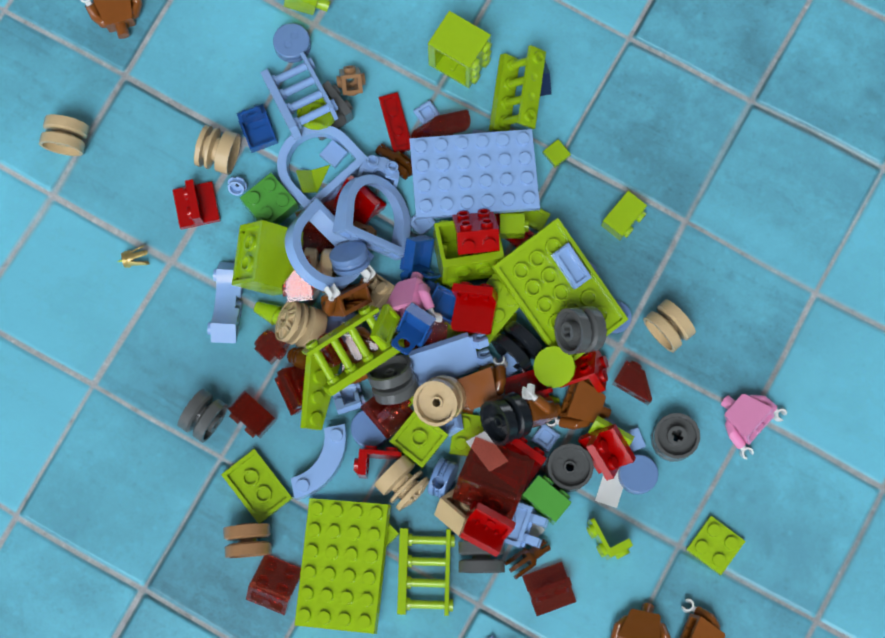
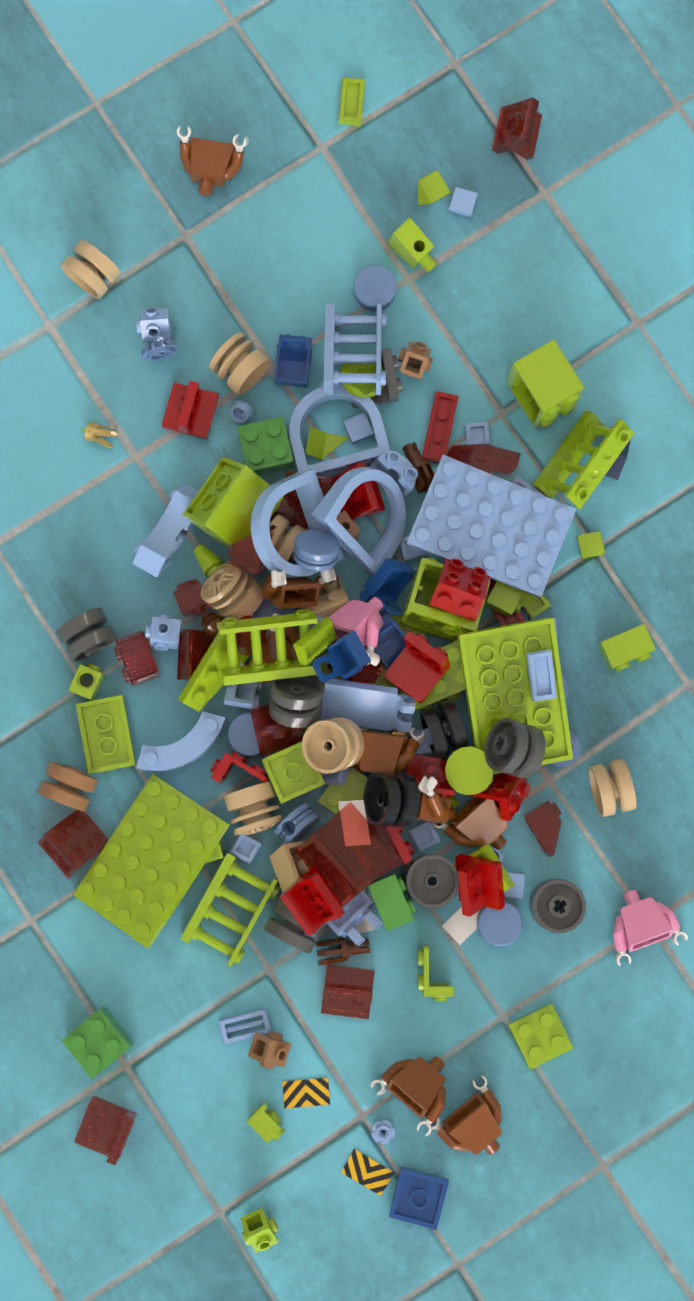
camera: 25 degrees right, 5 degrees up
(135, 153) = (154, 324): none -> light blue brick
(149, 170) = (159, 350): none -> medium blue gear
(225, 461) = (88, 692): none -> lime brick
(262, 384) = (163, 632): none -> light blue brick
(412, 518) = (245, 848): none -> light blue tile

